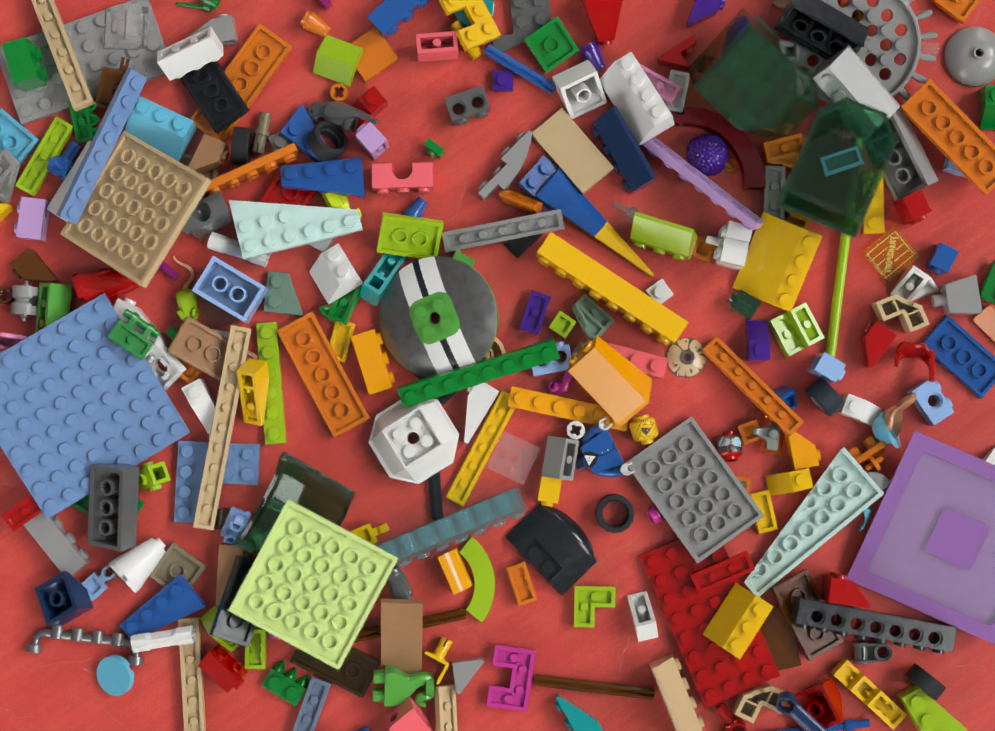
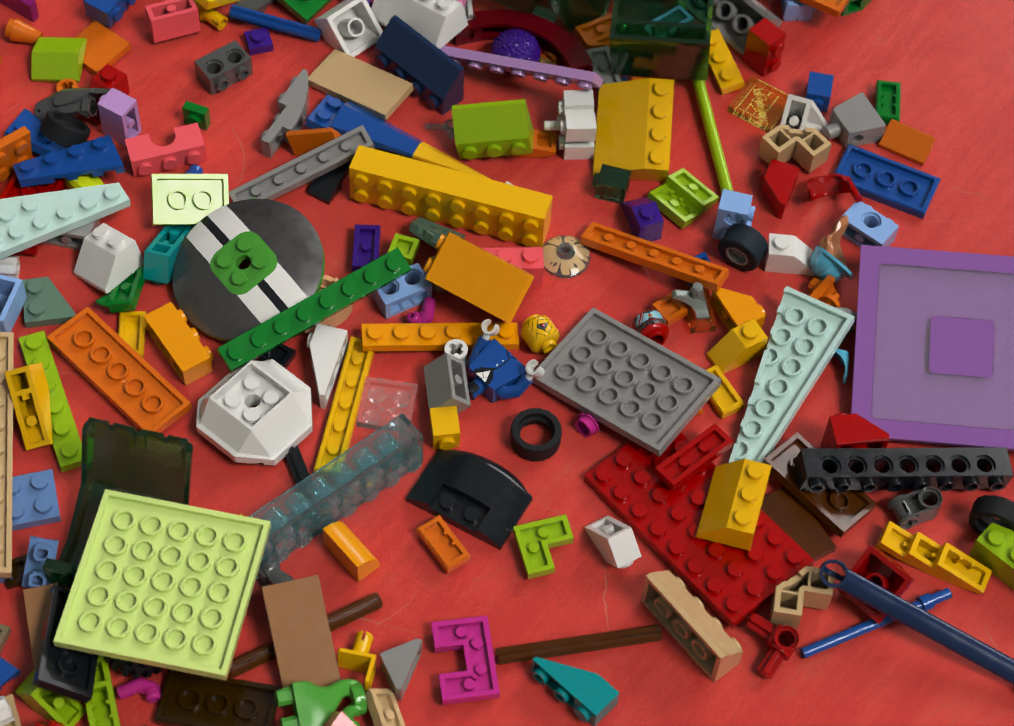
camera: 20 degrees left, 30 degrees down
(483, 578) = (392, 552): lime tile -> none

